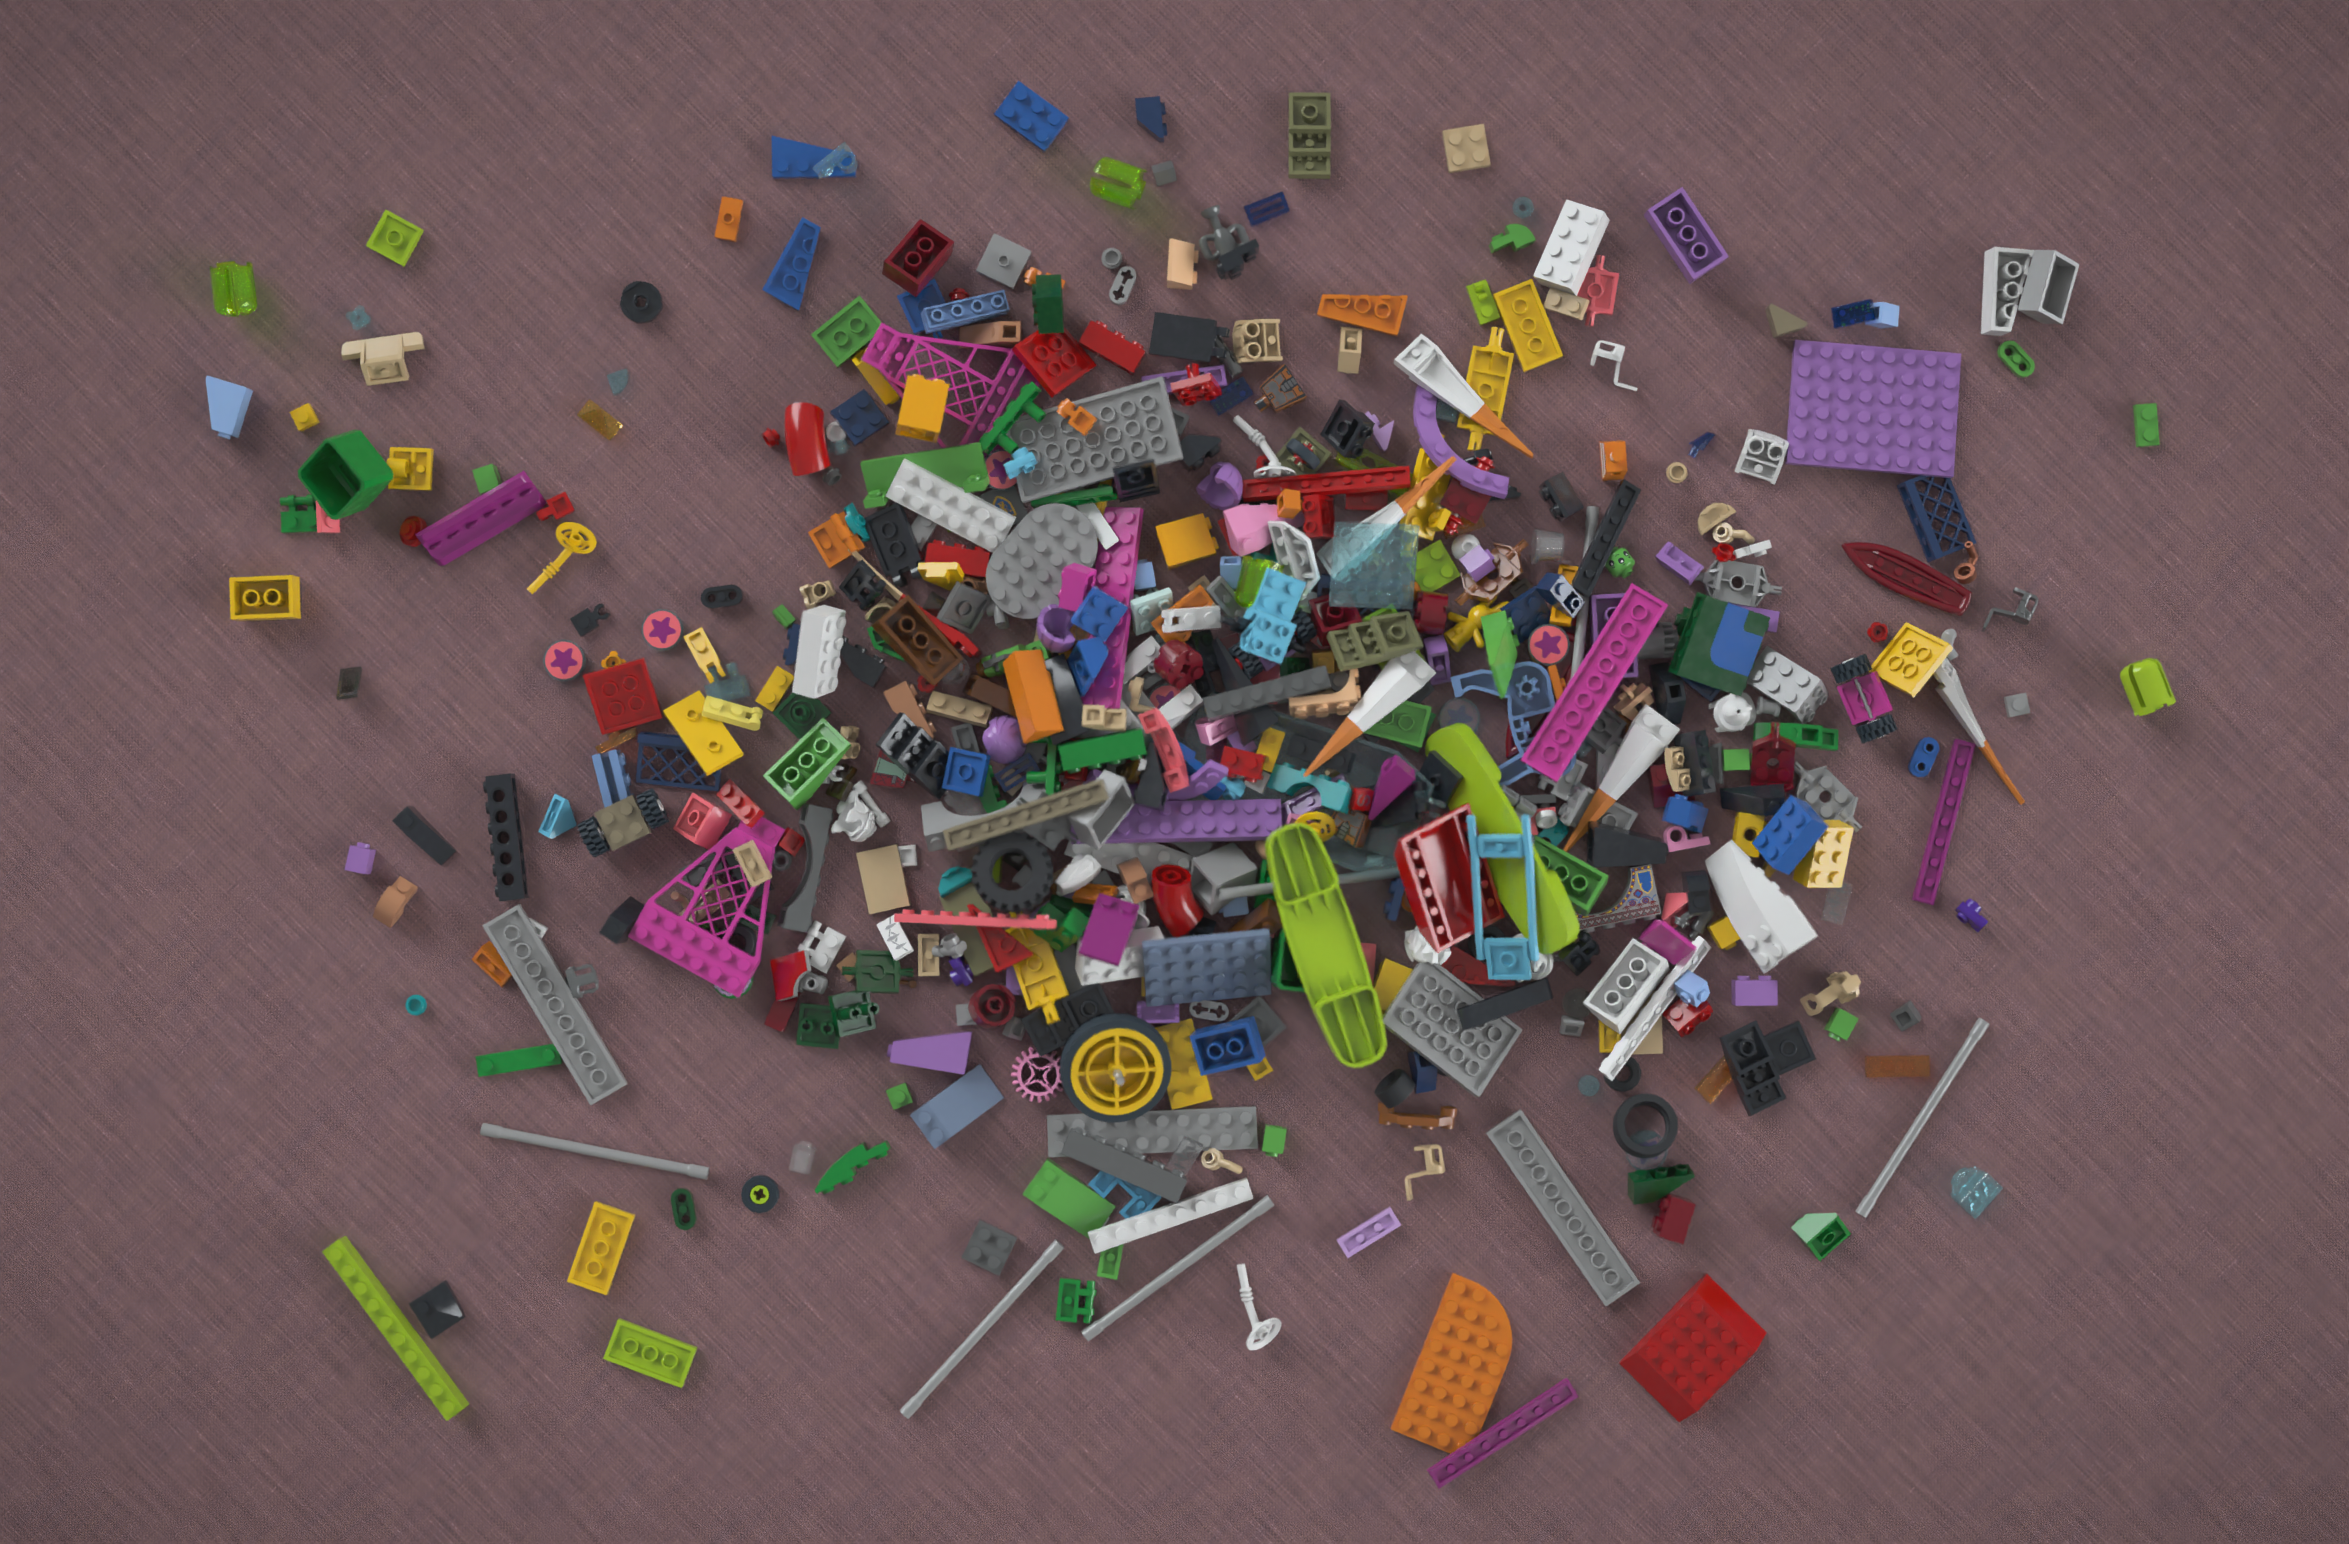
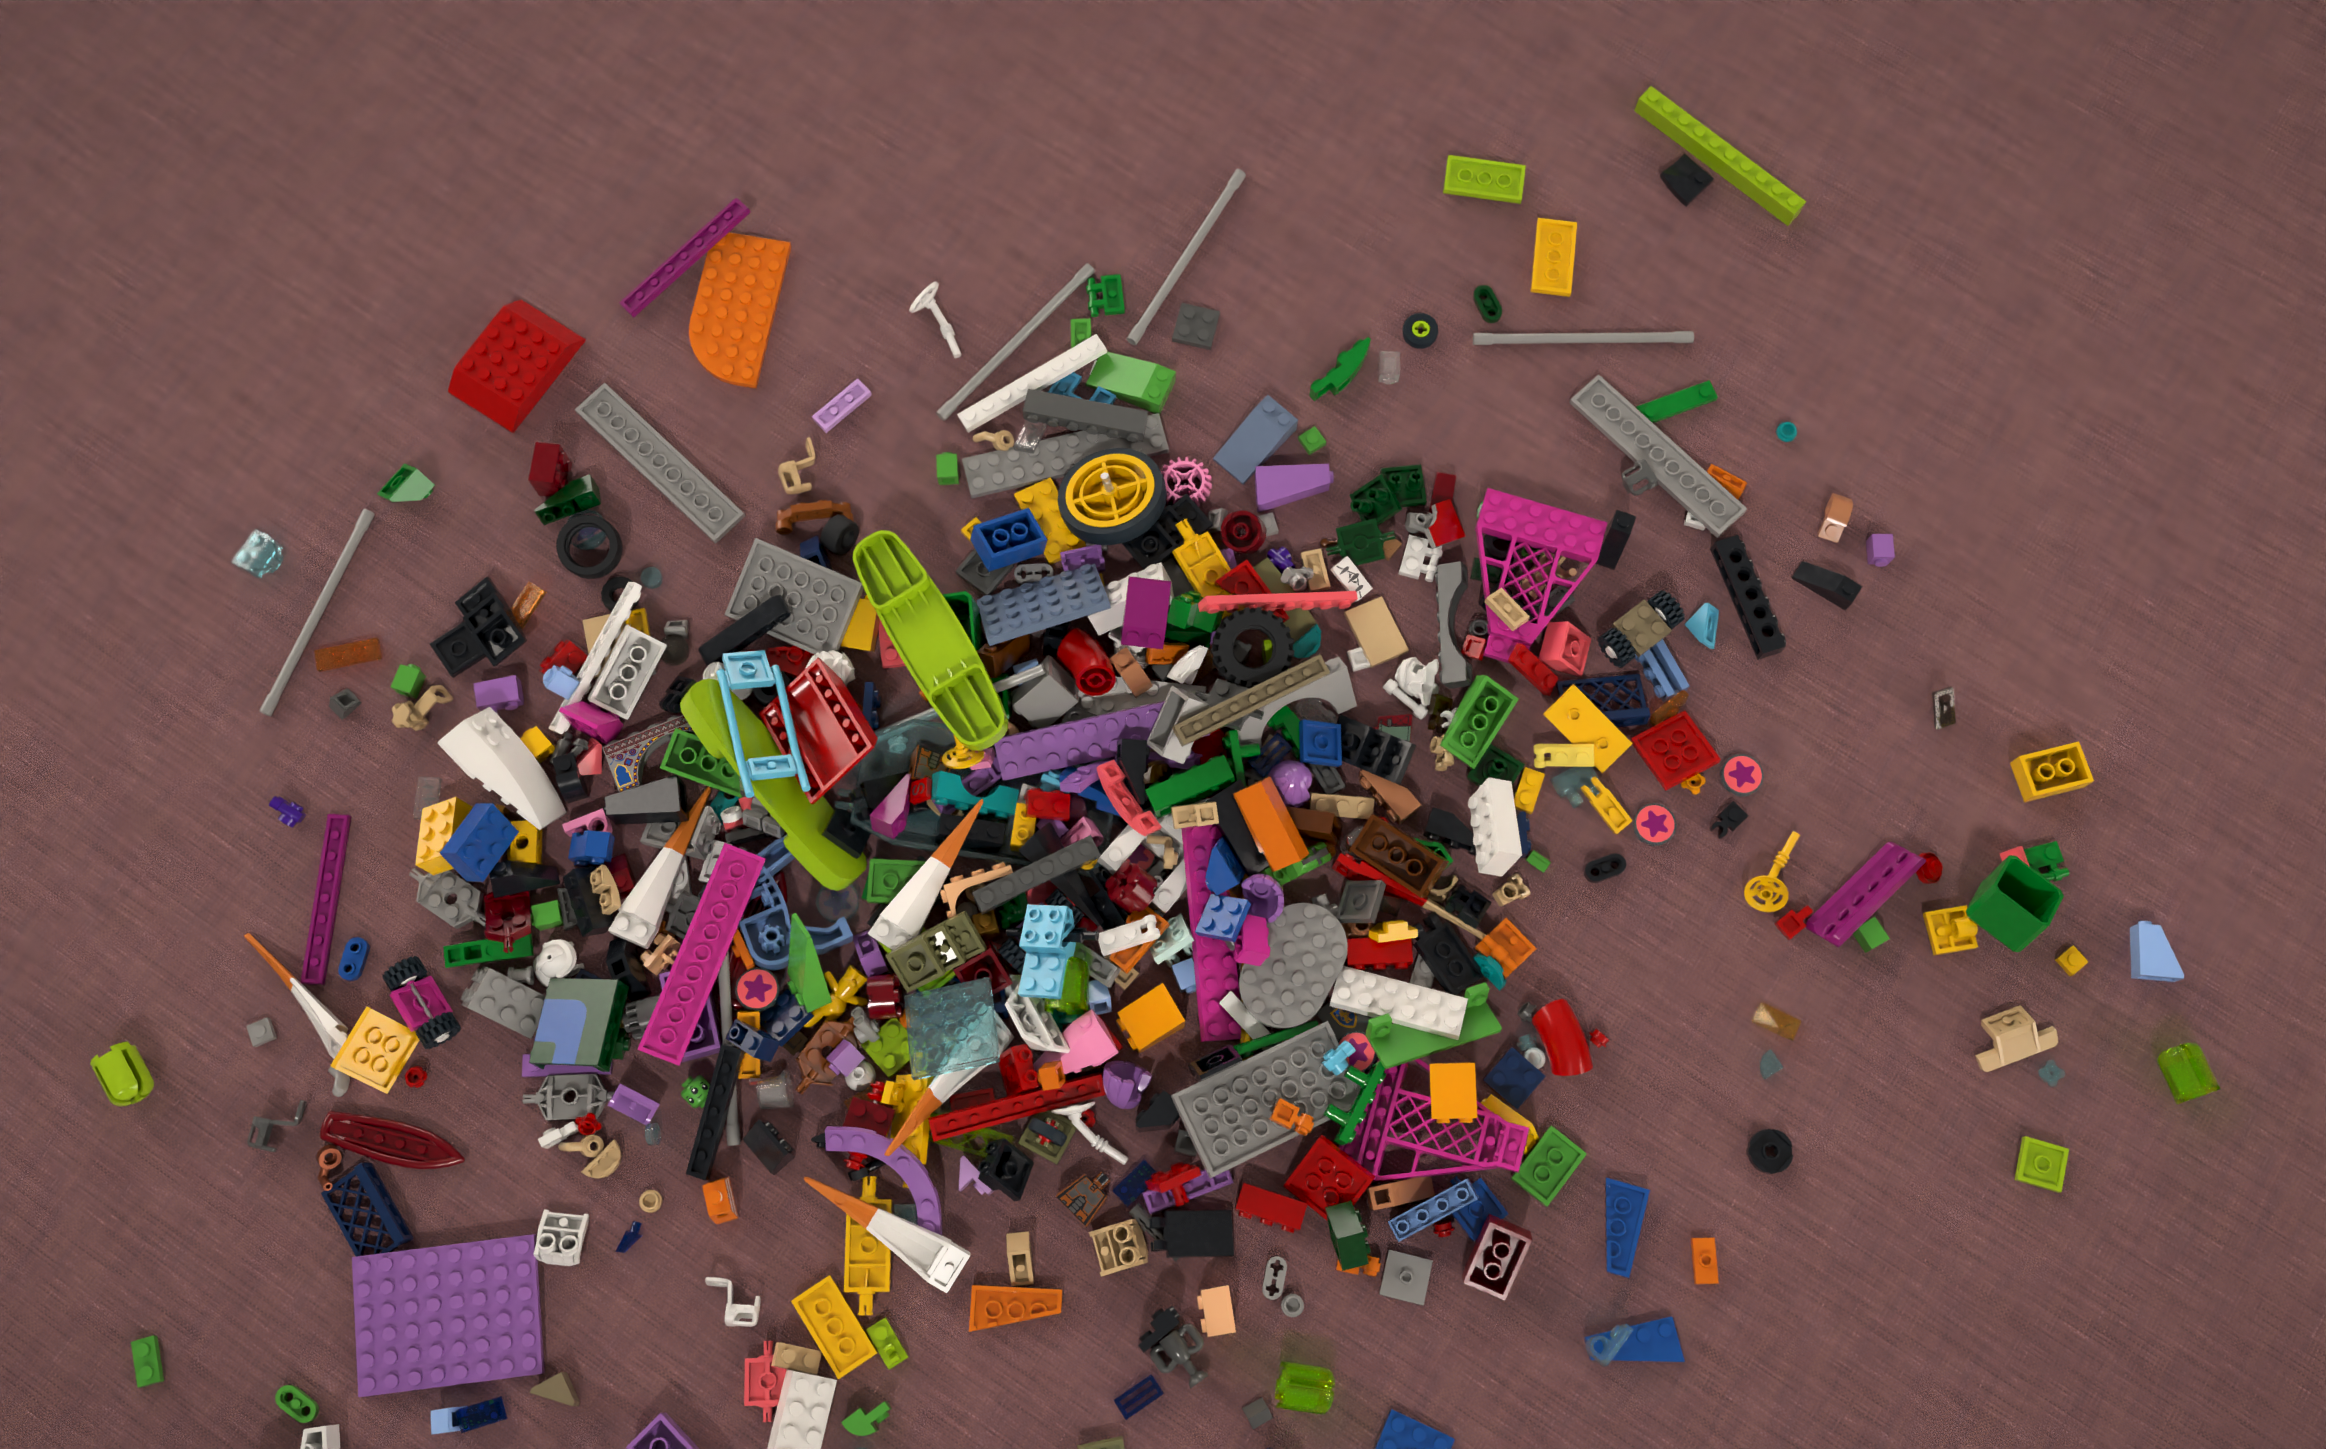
camera: 165 degrees right, 15 degrees down
(1454, 587) = (864, 1028): none -> light grey plate
(1666, 532) = (652, 1134): none -> clear light blue tile

